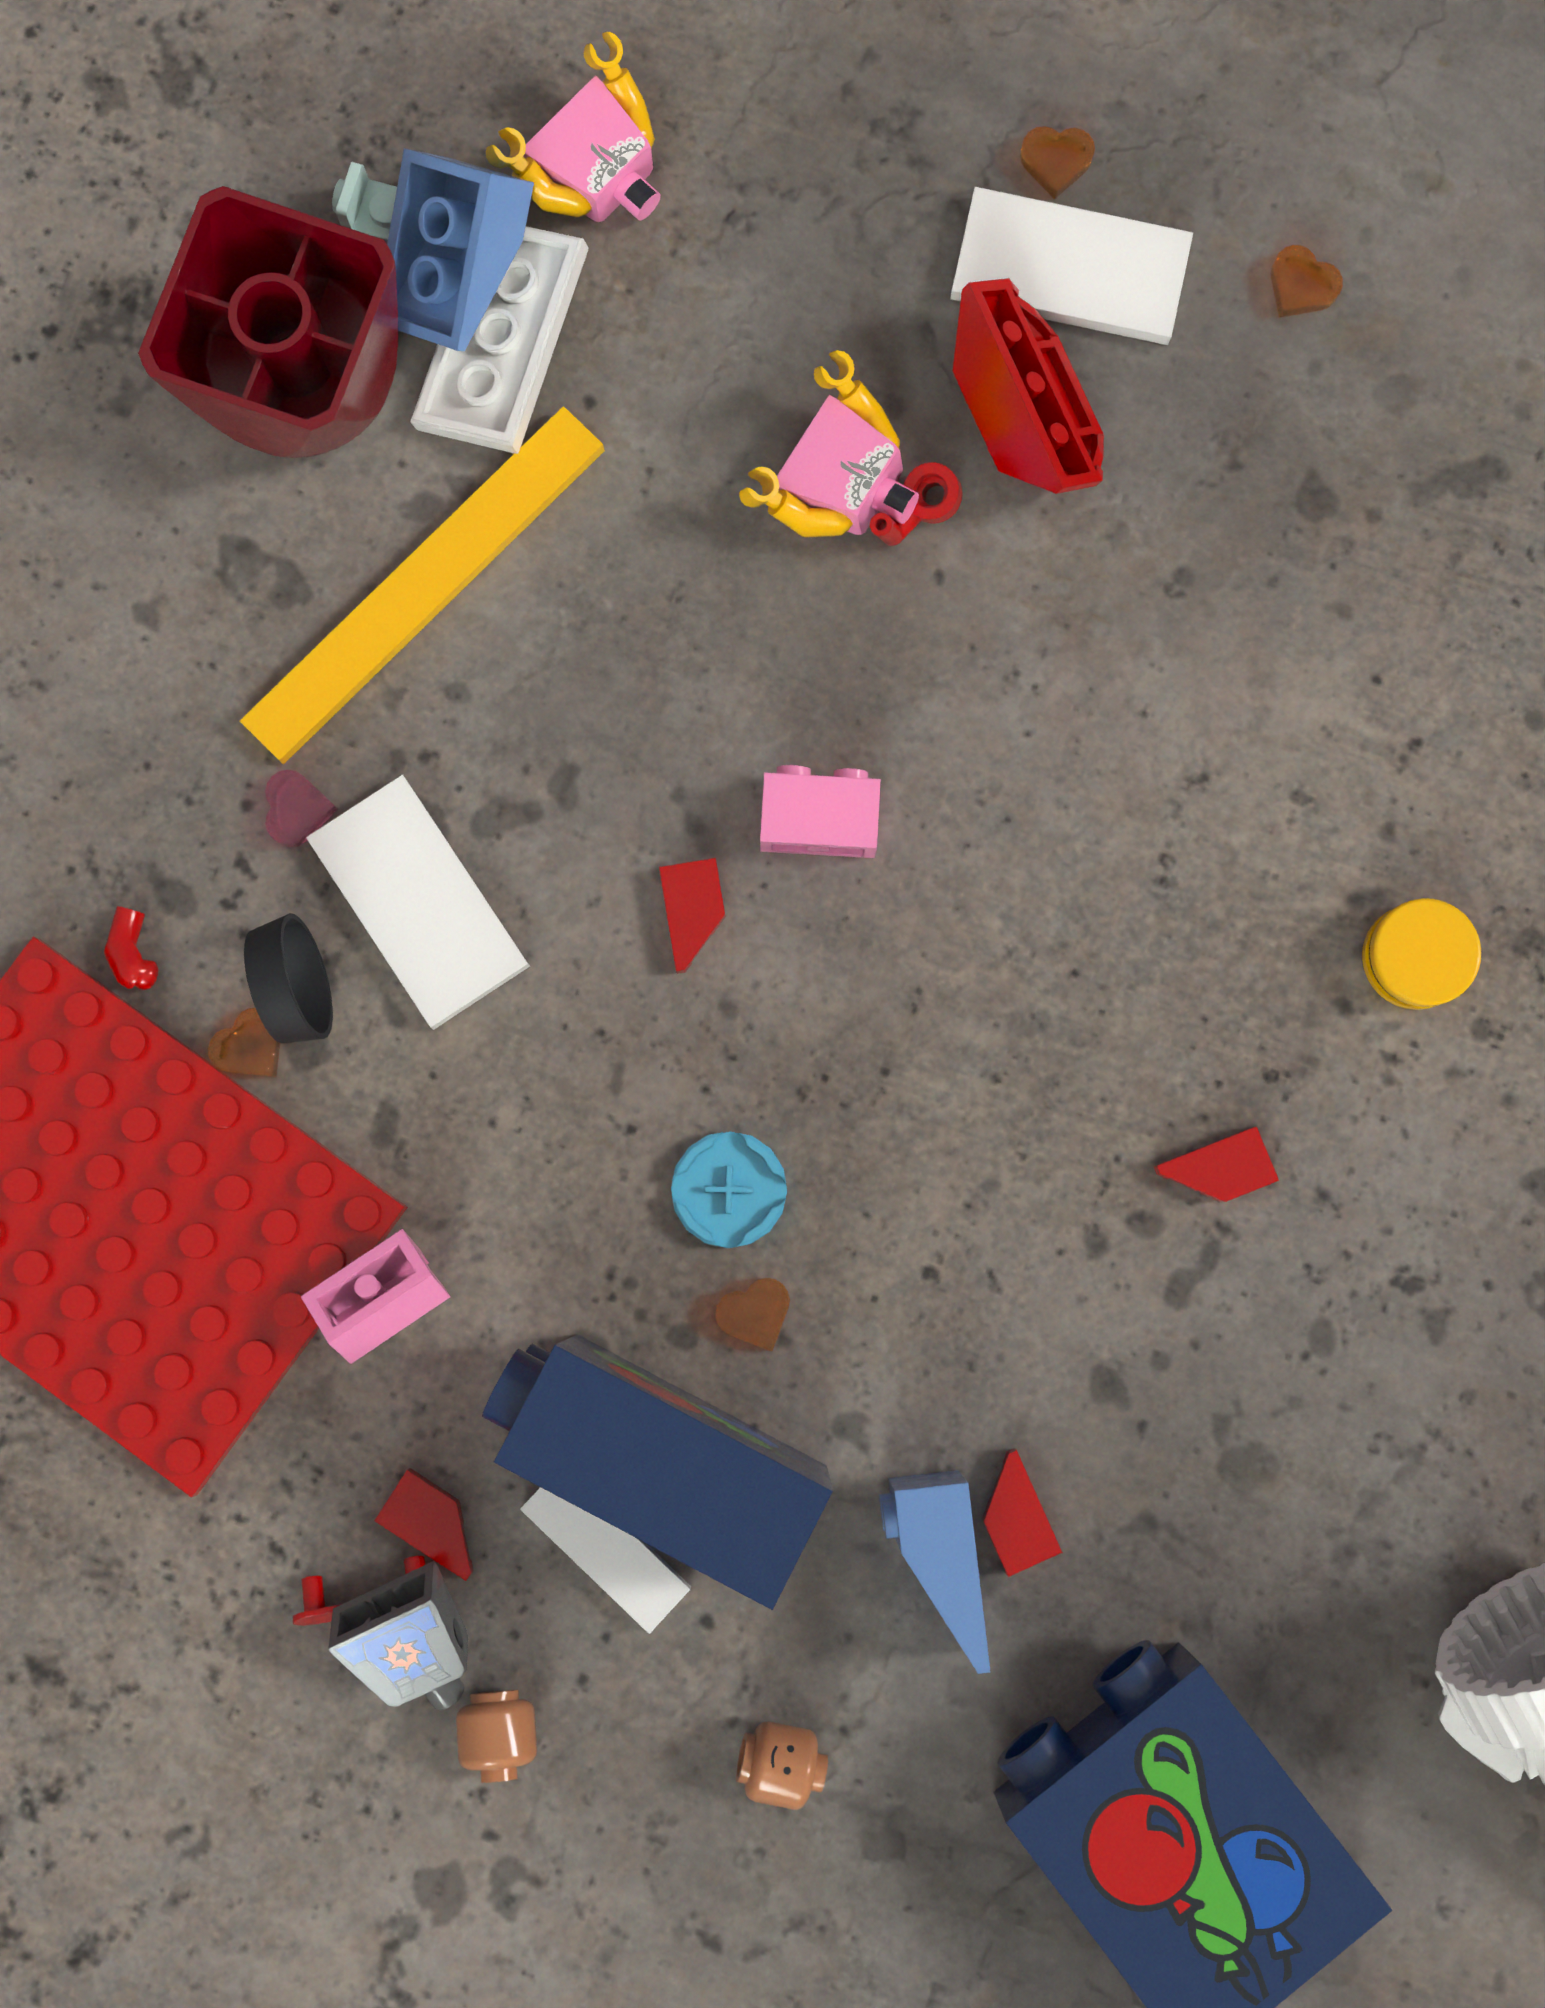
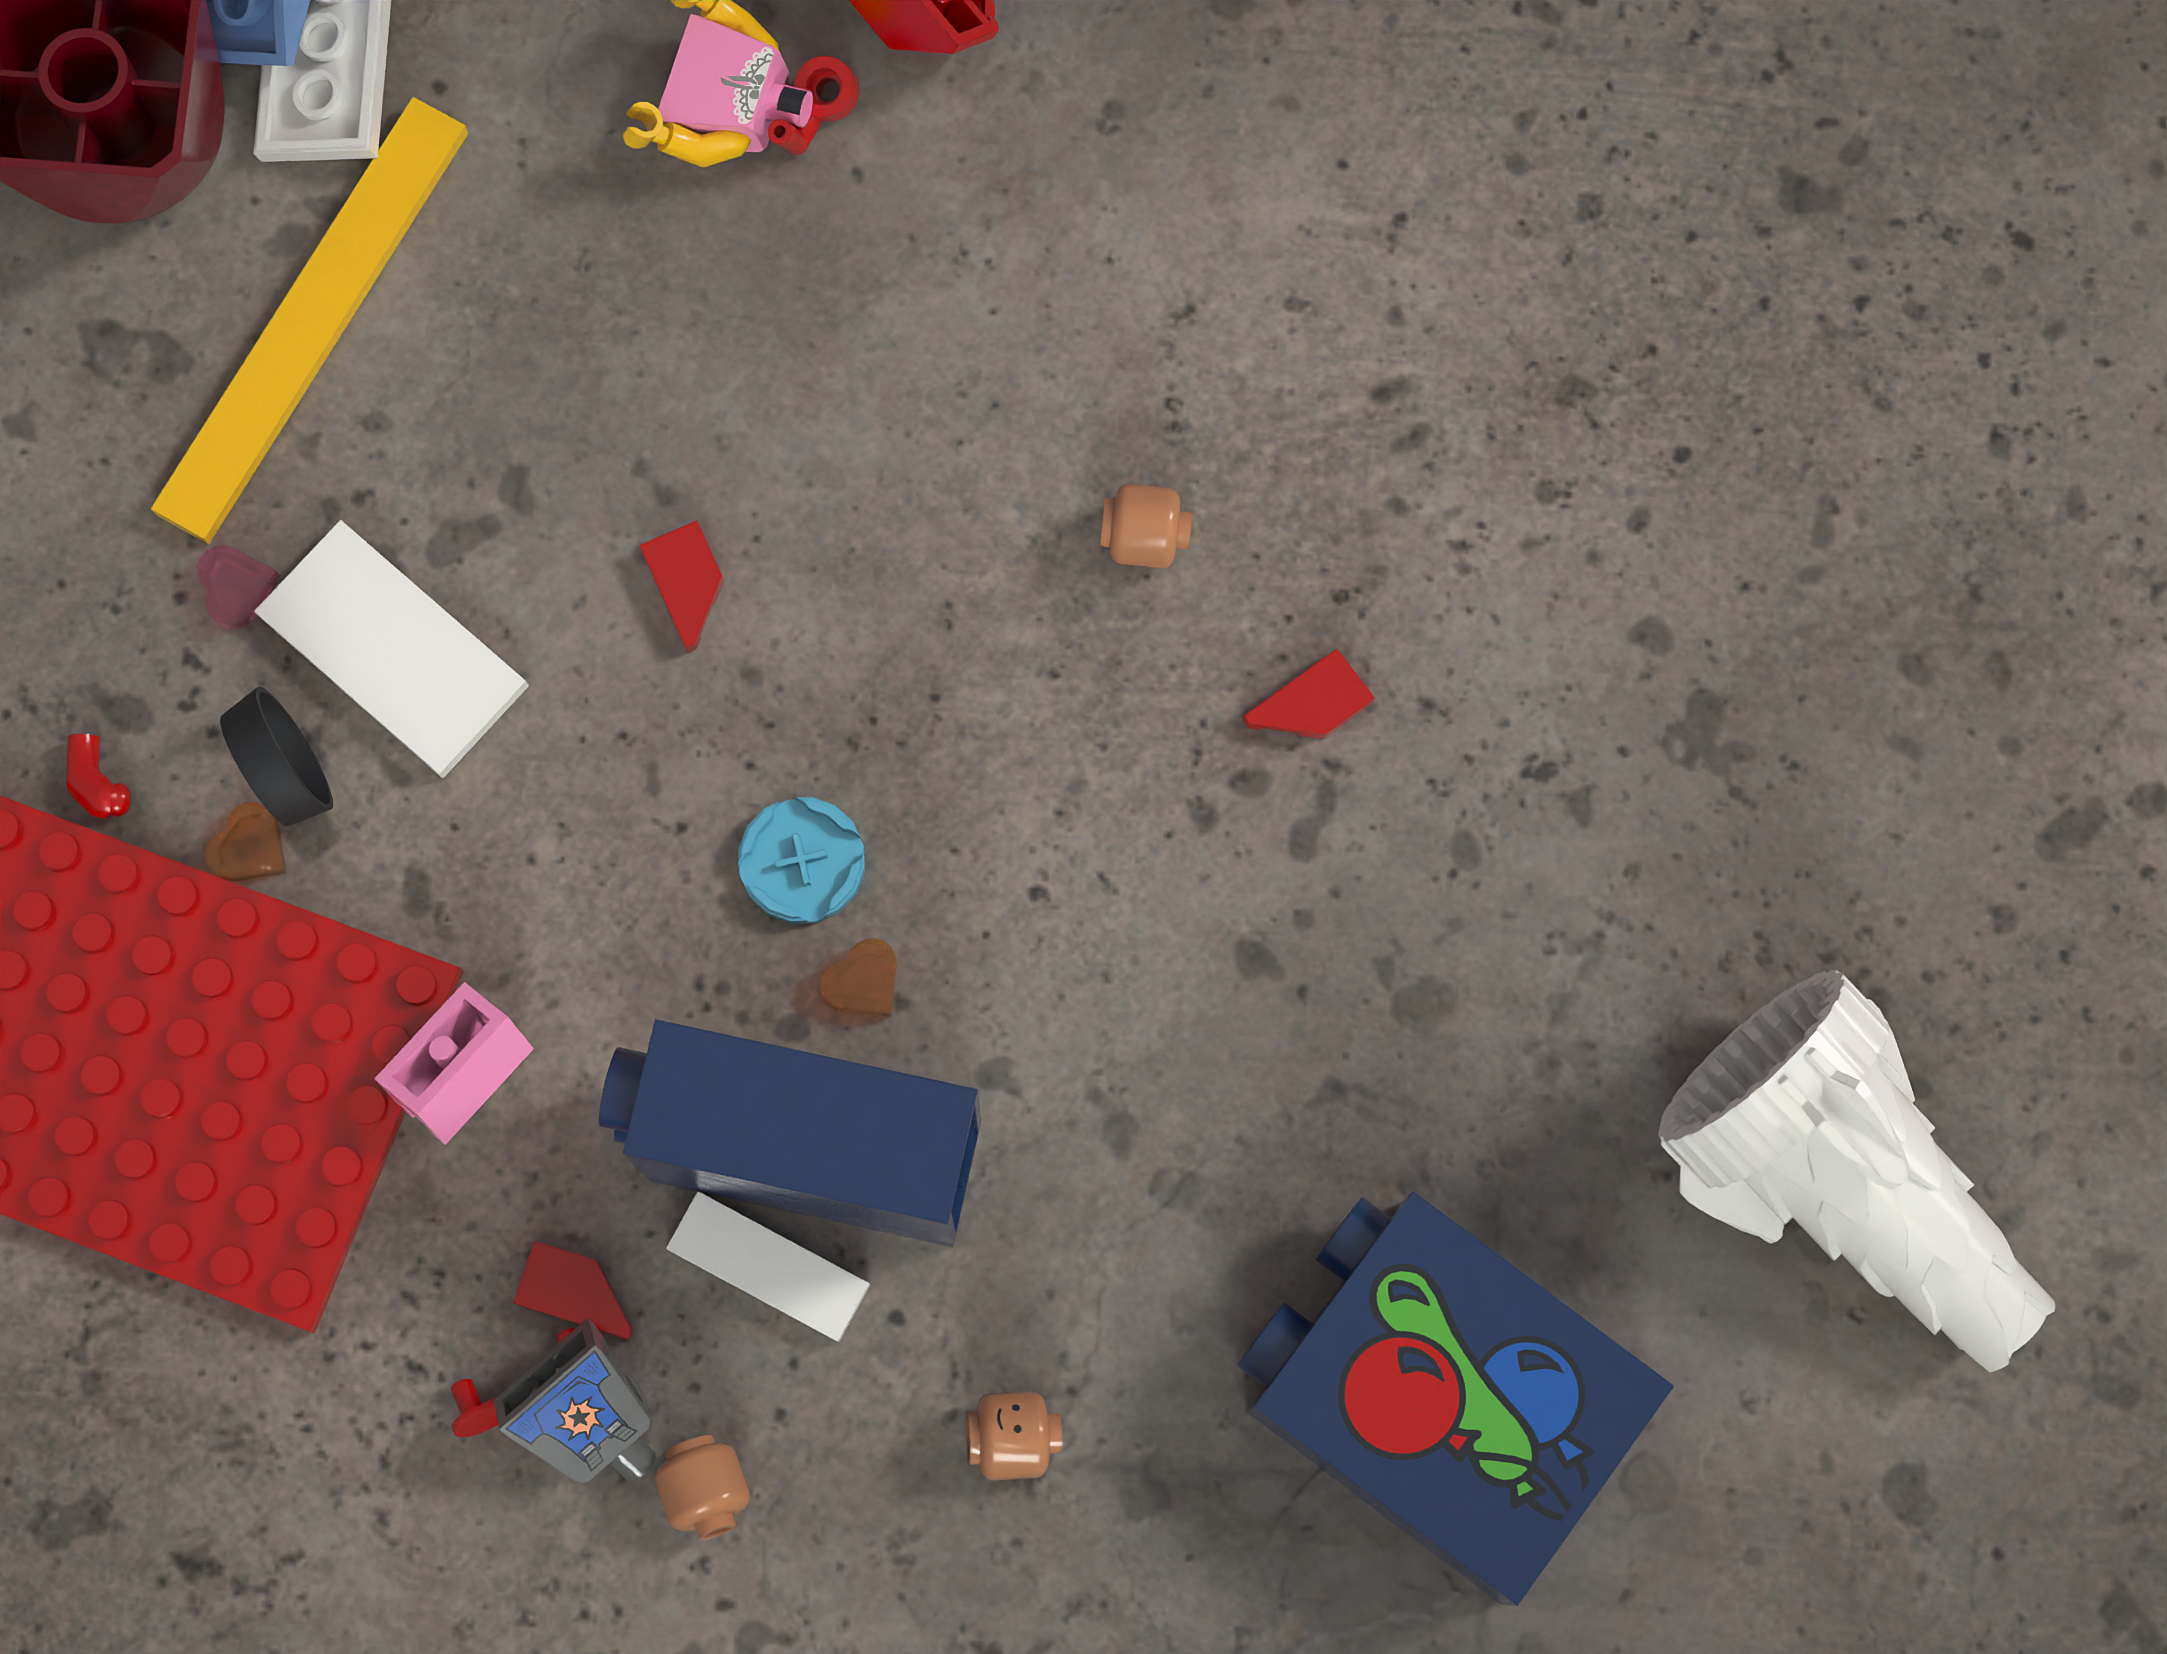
camera: 20 degrees left, 5 degrees down
(820, 812) = (794, 445): bright pink brick -> none
(936, 1537) = (1115, 1160): medium blue slope -> none
(1018, 1520) = (1196, 1120): red tile -> none
(1114, 970) = (1145, 526): none -> nougat head
(1421, 954) = (1460, 428): yellow head -> none

